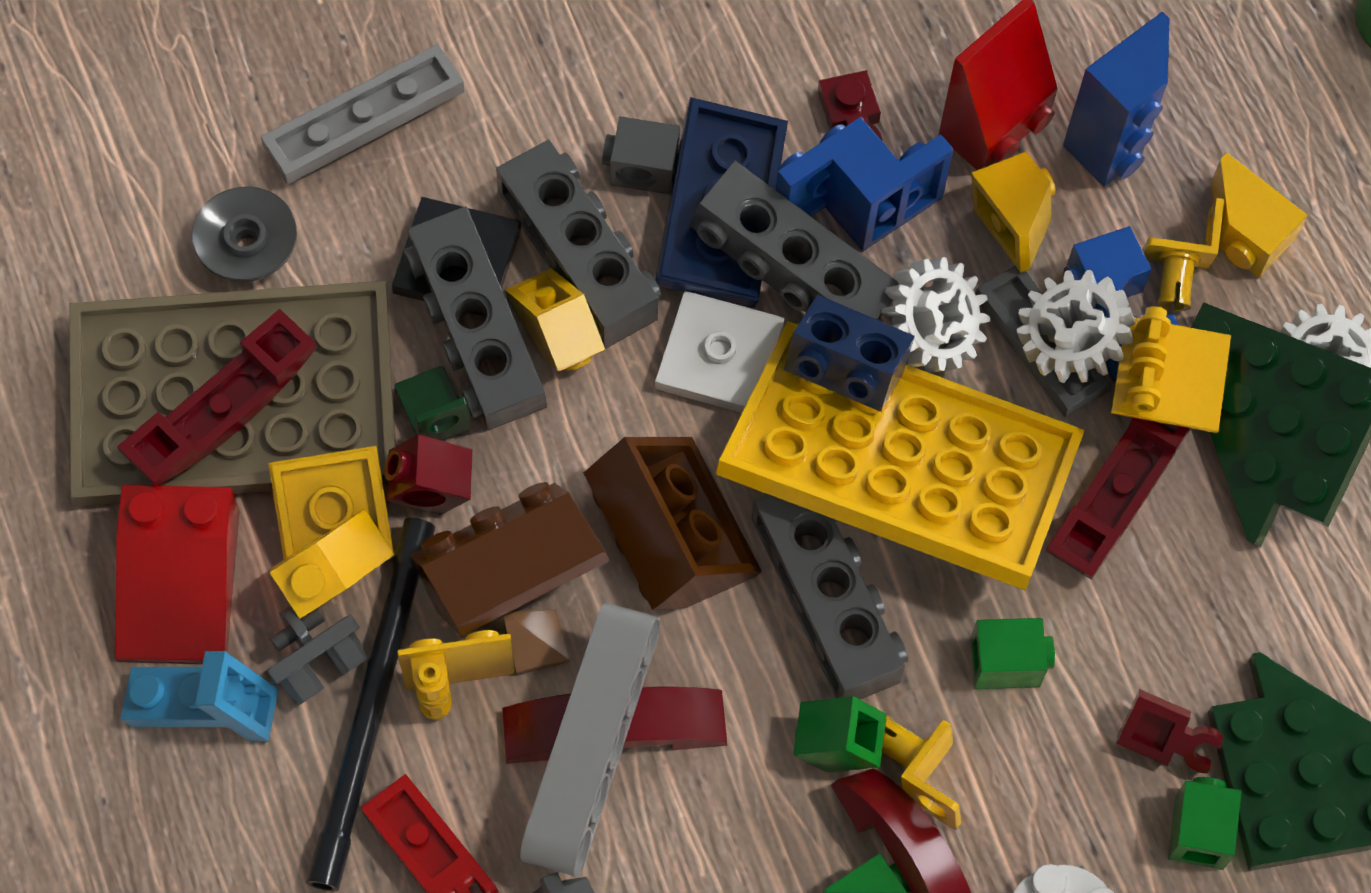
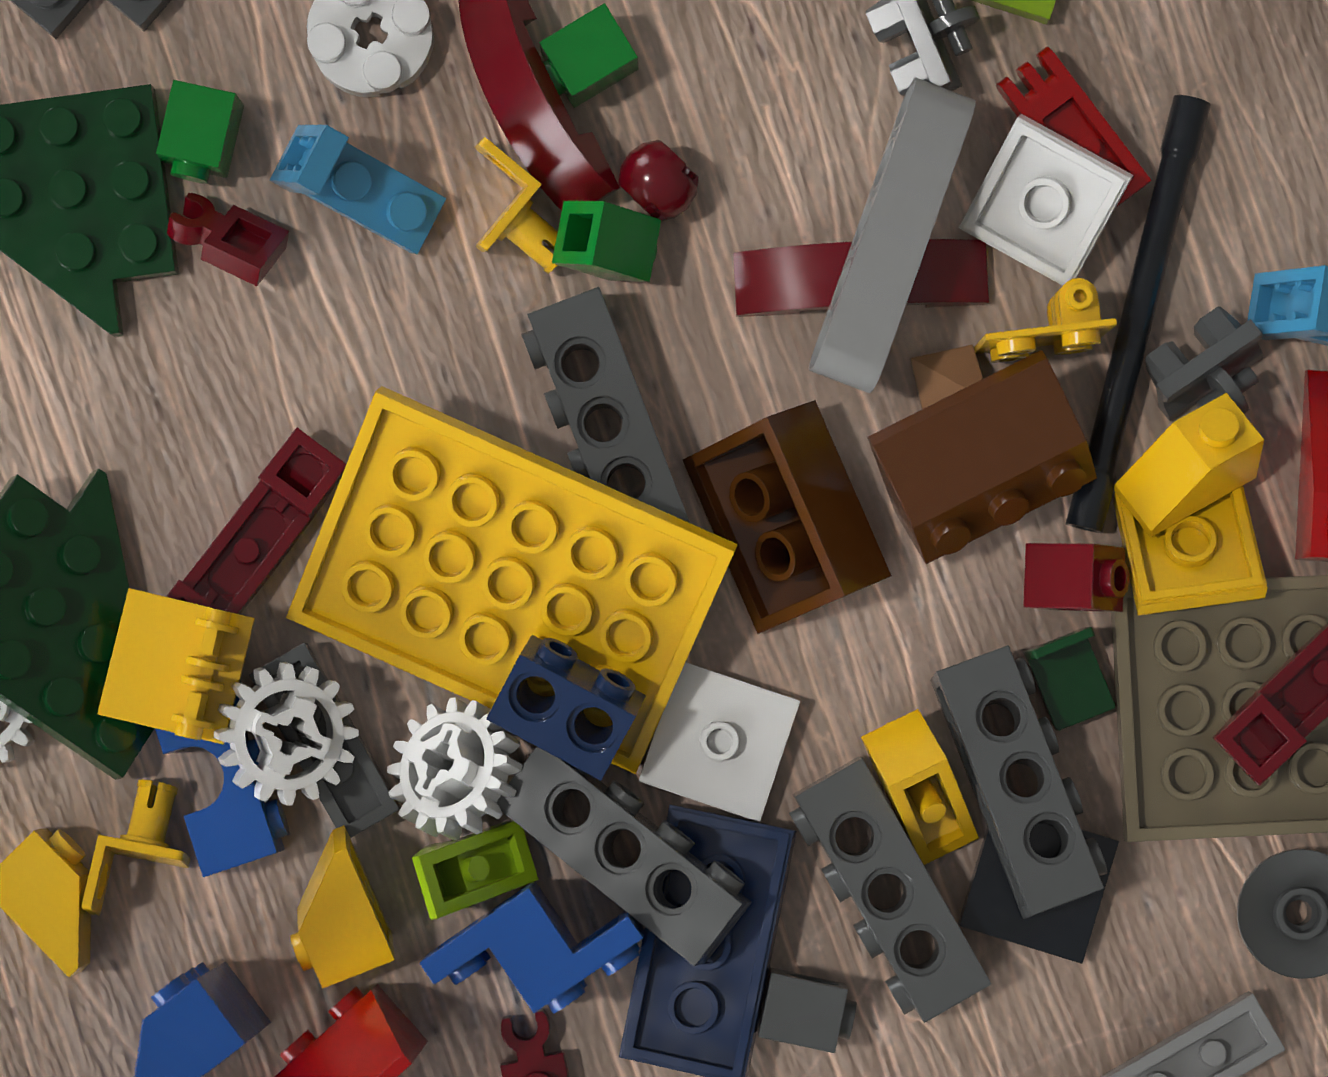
camera: 170 degrees left, 20 degrees up
(454, 785) = (1045, 201): none -> white plate
(797, 794) = (658, 180): none -> dark red piece
(921, 234) = (473, 868): none -> lime slope
(1011, 653) = (399, 338): green brick -> none
(1065, 777) = (357, 186): none -> dark azure bracket

